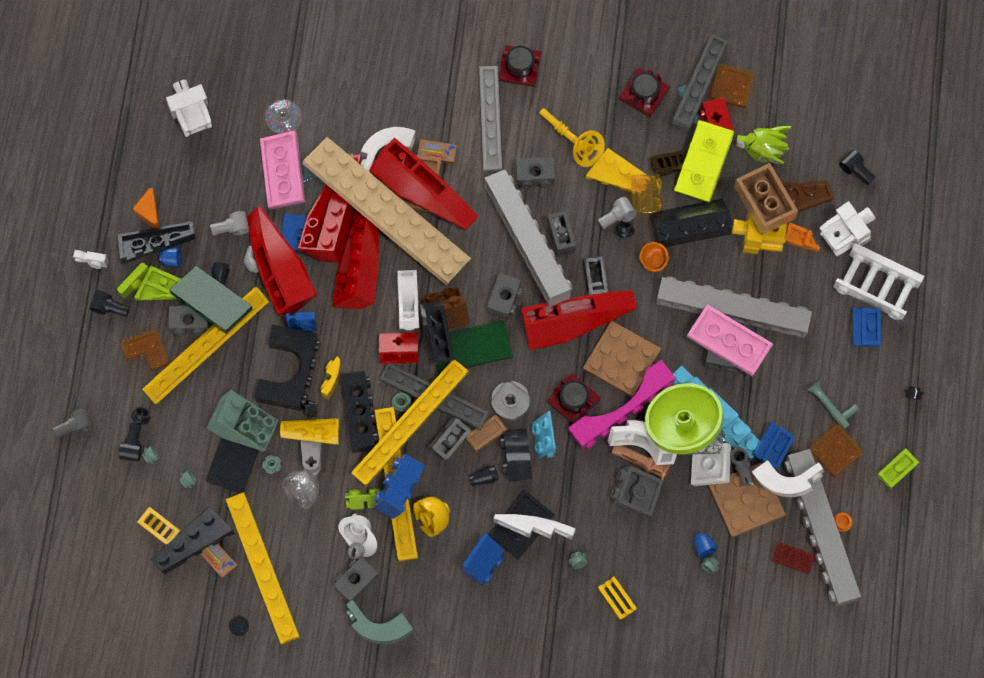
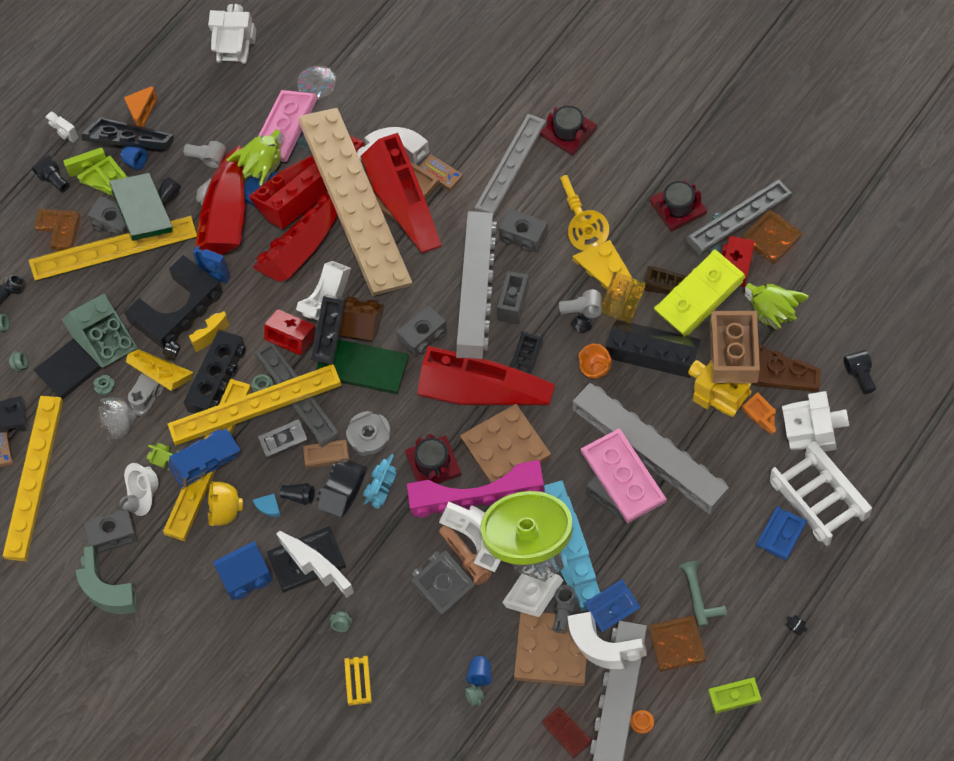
camera: 35 degrees right, 10 degrees down
(286, 209) = (260, 156): none -> lime piece
(465, 497) = (267, 505): none -> dark azure tile

